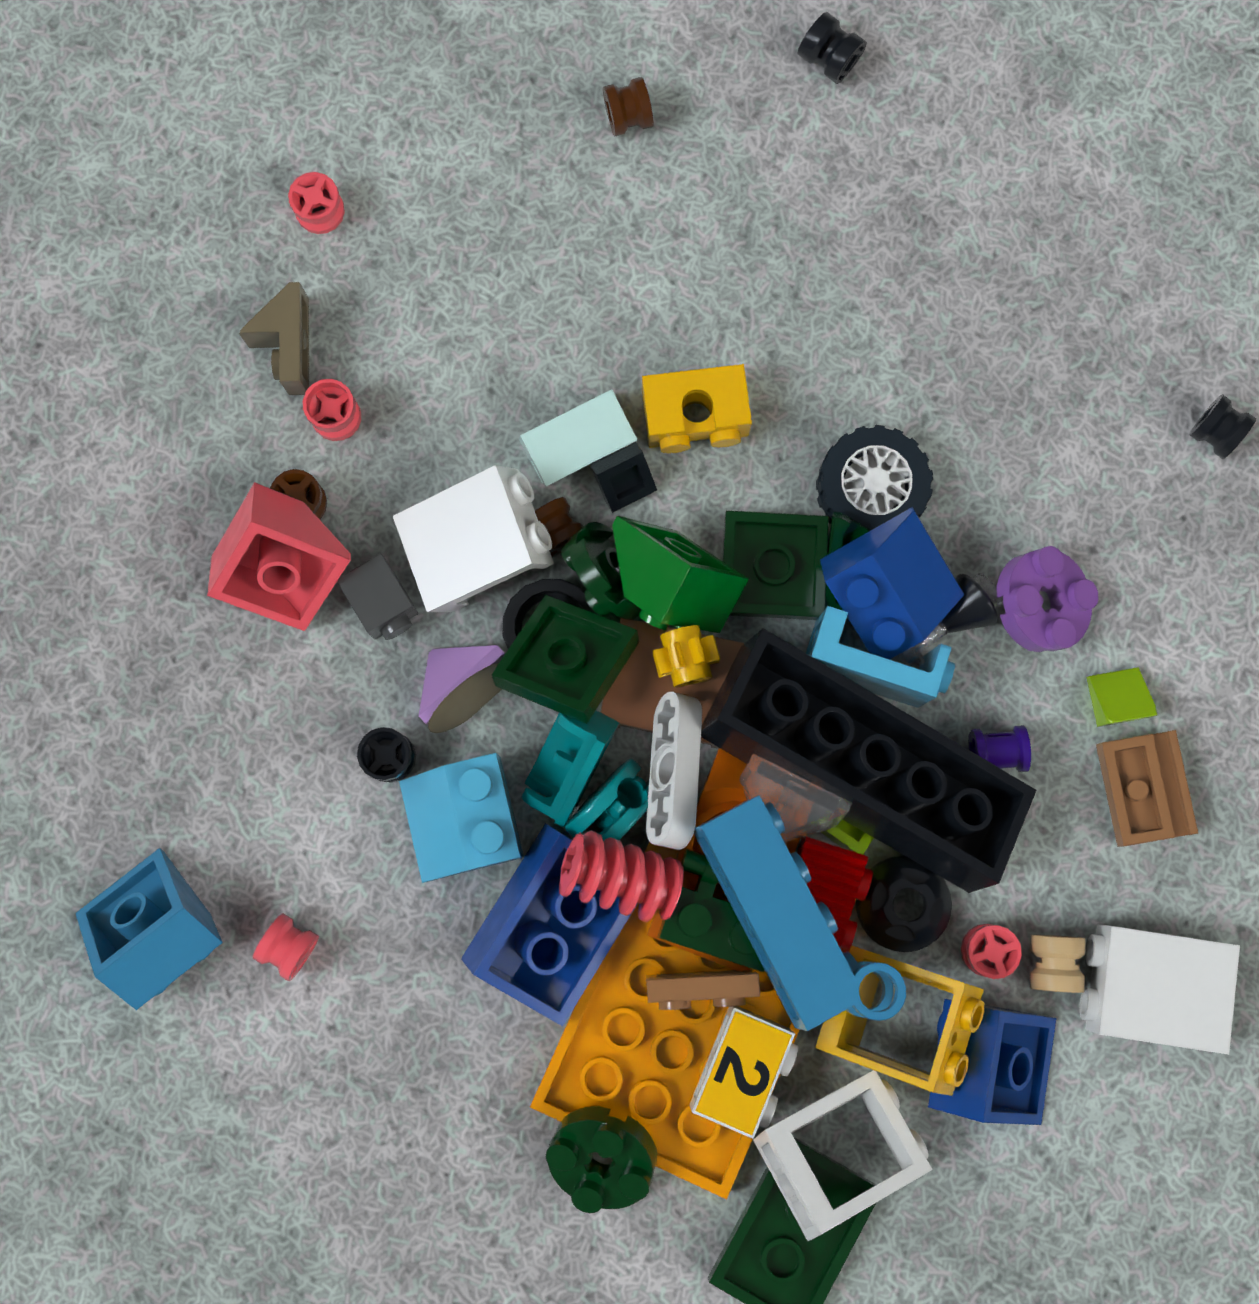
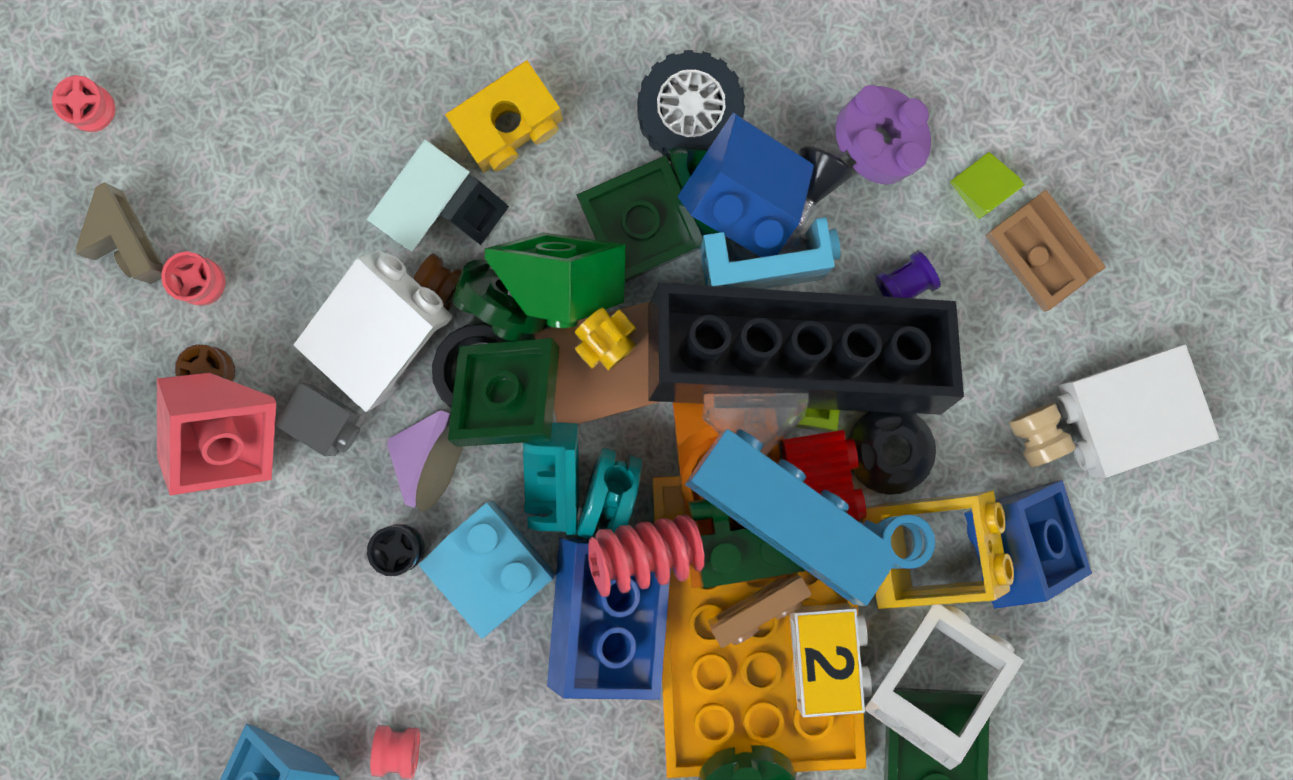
camera: 25 degrees left, 5 degrees up
(674, 771) = (645, 442): white beam -> none
(1000, 948) = (990, 458): coral wheel -> none

